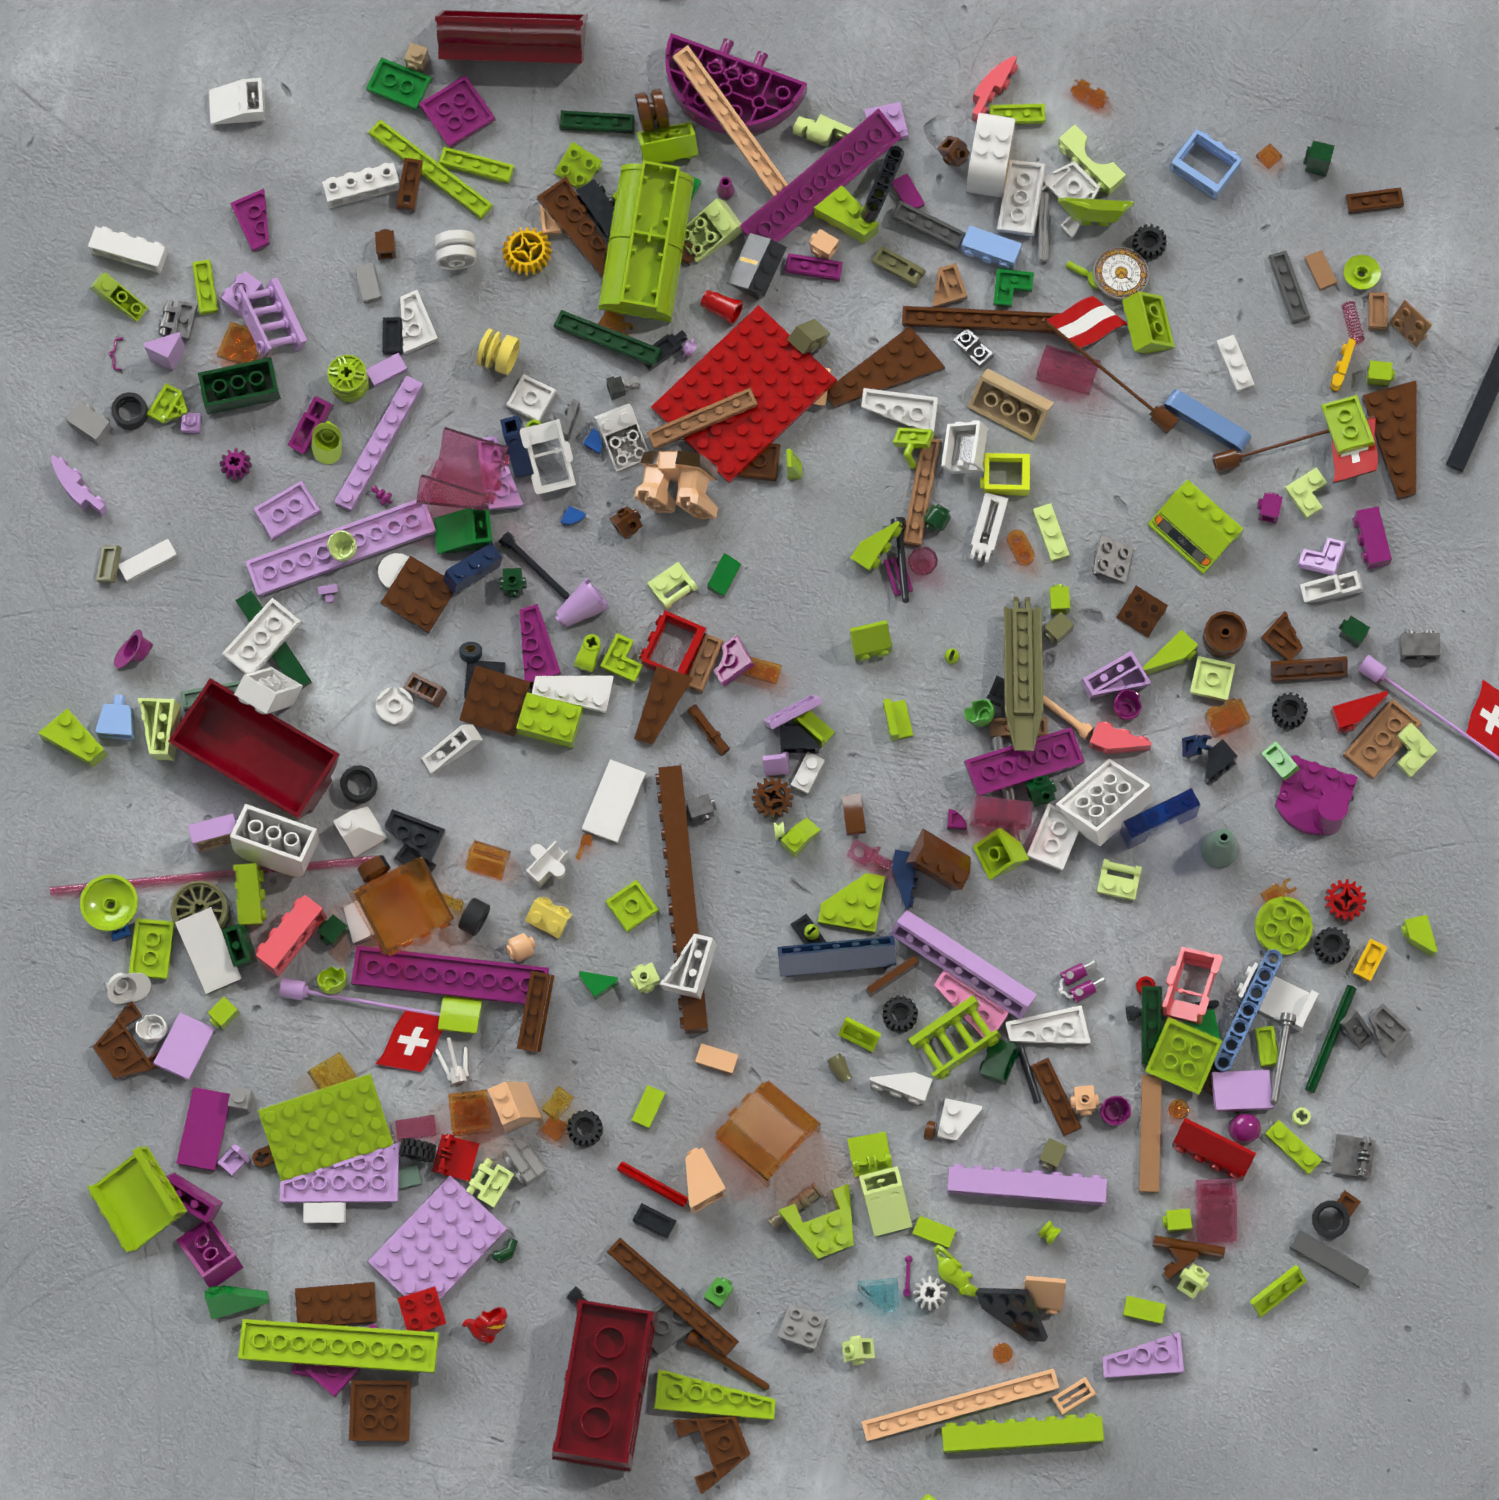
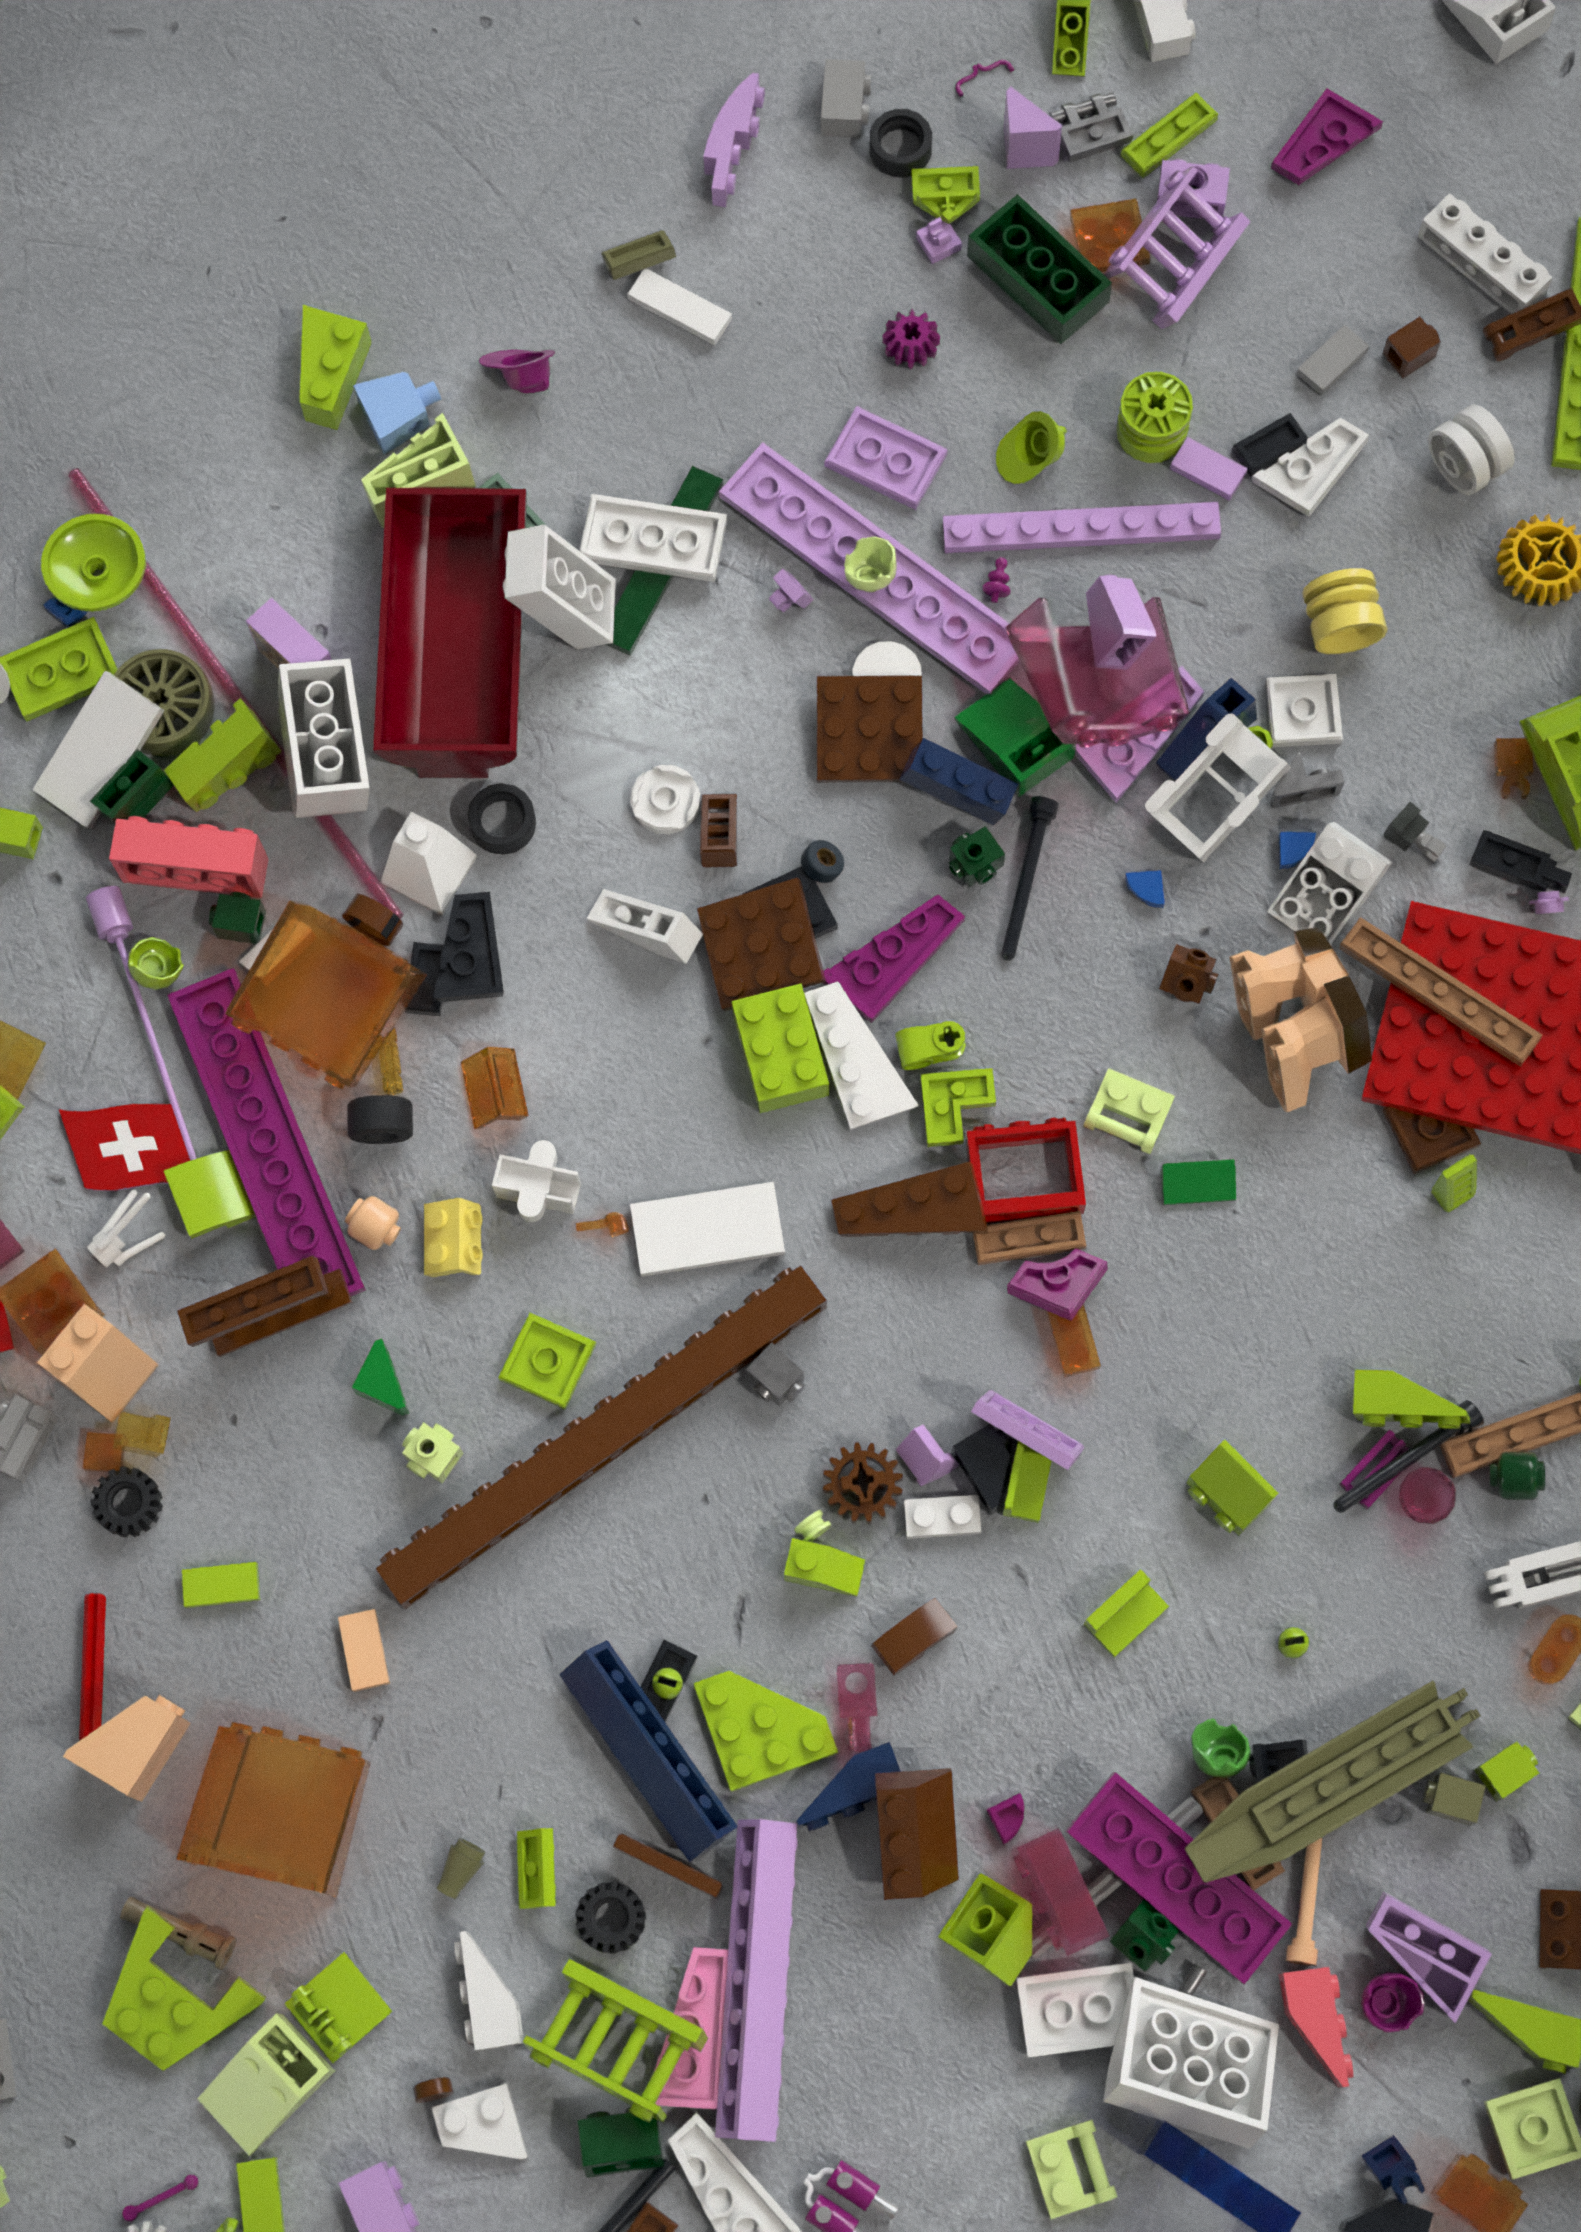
camera: 60 degrees right, 0 degrees up
(316, 414) = (1071, 407): magenta slope -> none
(442, 452) = (1117, 622): none -> lavender slope
(581, 604) = (1006, 986): lavender cone -> none
(607, 338) = (1480, 767): dark green tile -> none
(654, 1220) = (32, 1707): black tile -> none
(691, 968) = (480, 1518): white wedge -> none
(712, 735) = (912, 1323): reddish brown pin -> none
(881, 1293) = (97, 2168): clear light blue slope -> none

